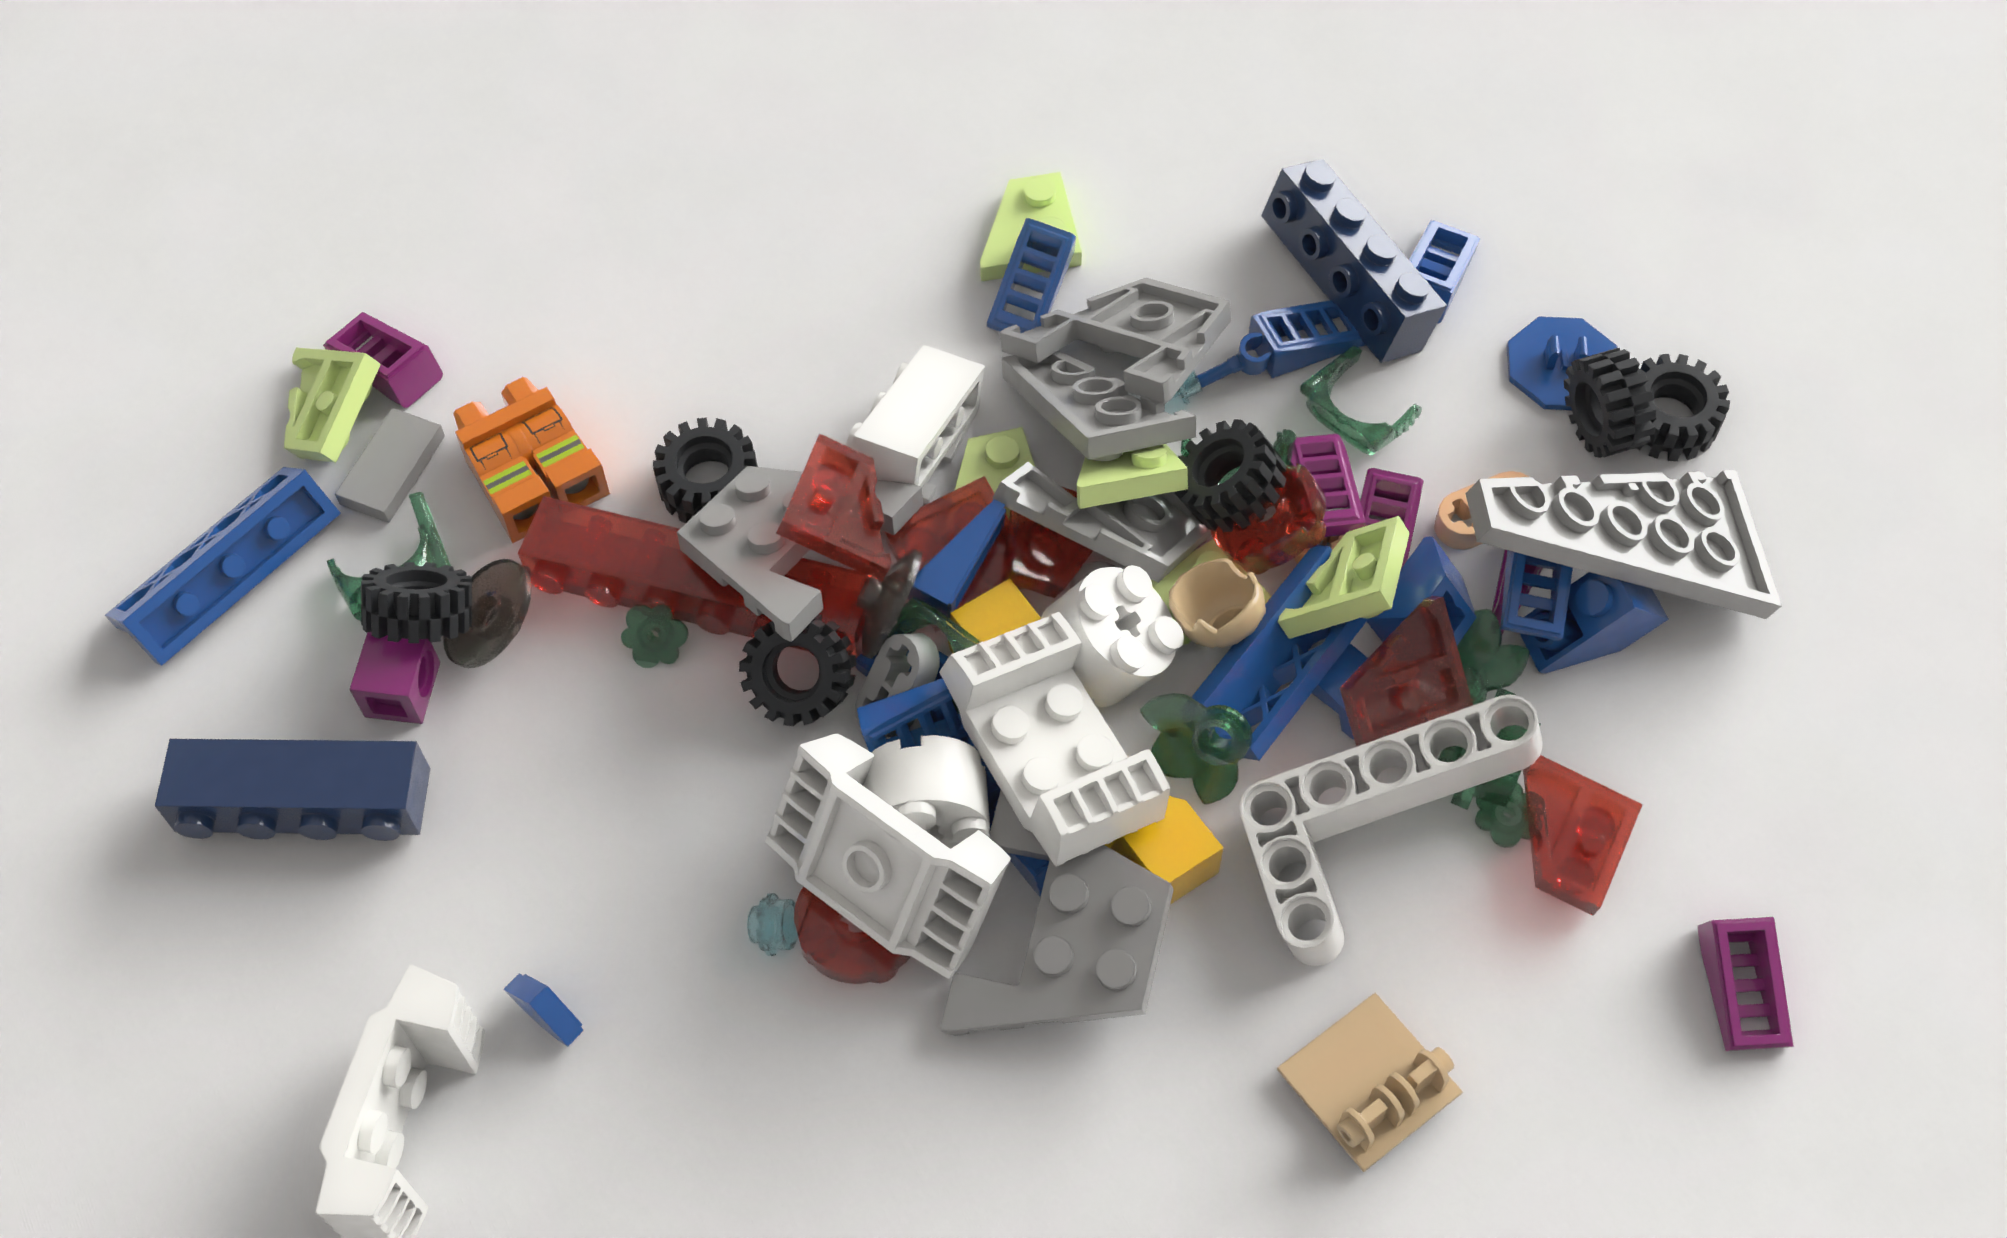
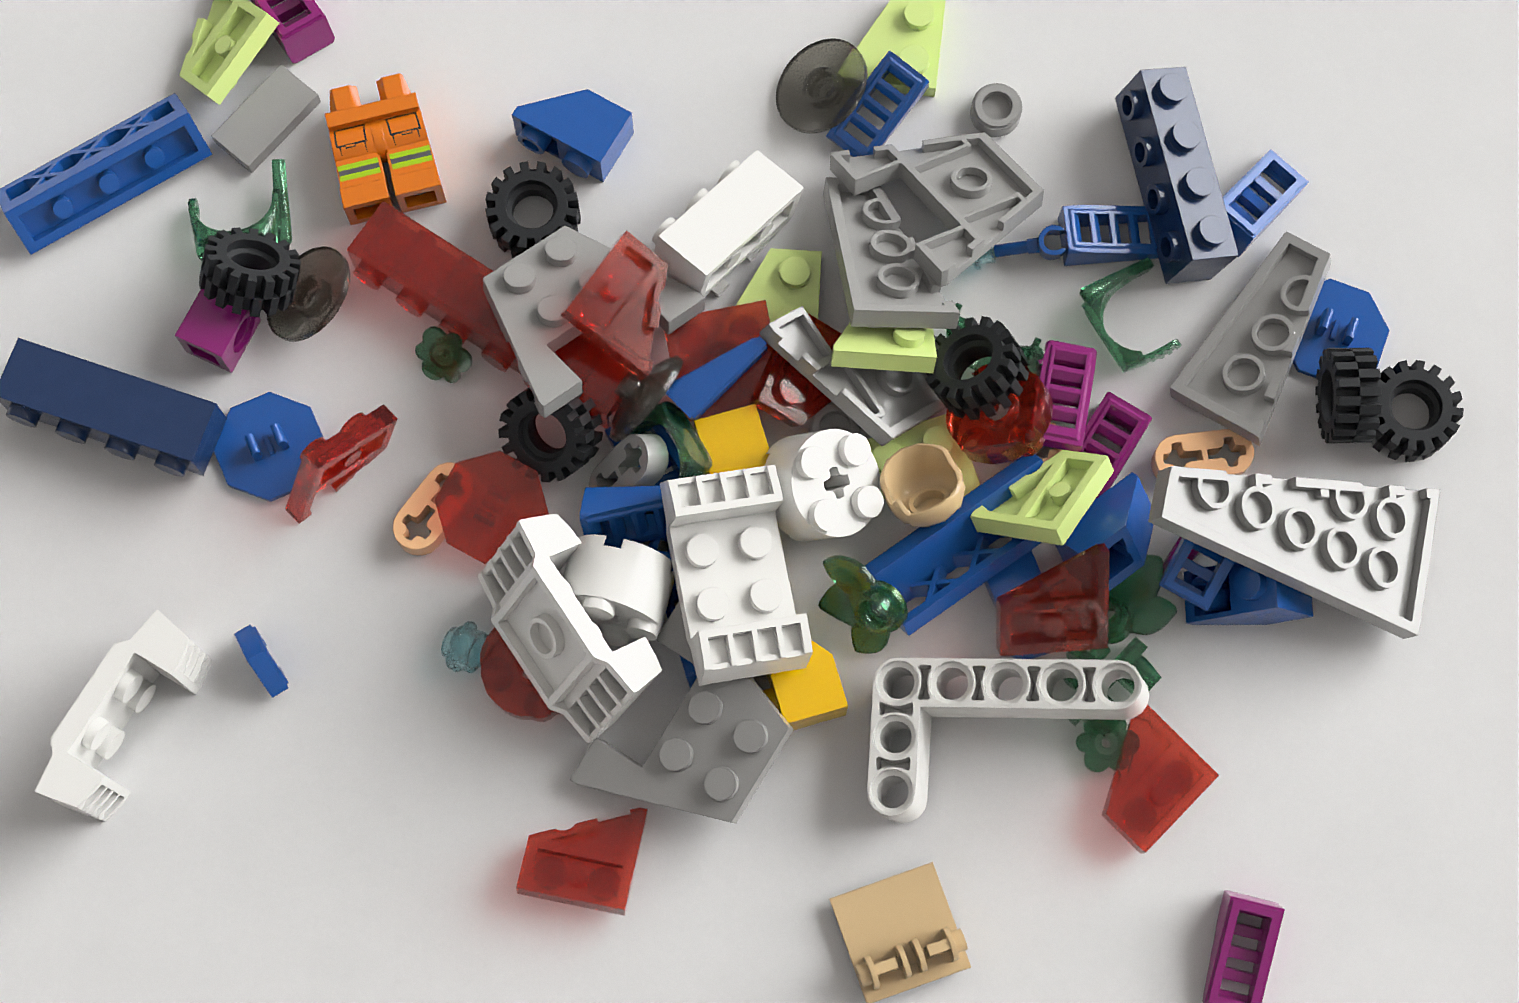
camera: 15 degrees right, 15 degrees up
(487, 785) = (264, 444): none -> blue piece
(568, 767) = (339, 458): none -> clear red wing
(681, 787) = (417, 509): none -> light nougat beam
(726, 381) = (577, 129): none -> blue slope
(748, 762) = (485, 502): none -> clear red piece
(966, 276) = (821, 85): none -> clear smoke dish
(989, 1115) = (585, 864): none -> clear red wing
(1148, 256) = (996, 109): none -> light grey tile
(1493, 390) = (1252, 347): none -> light grey wing

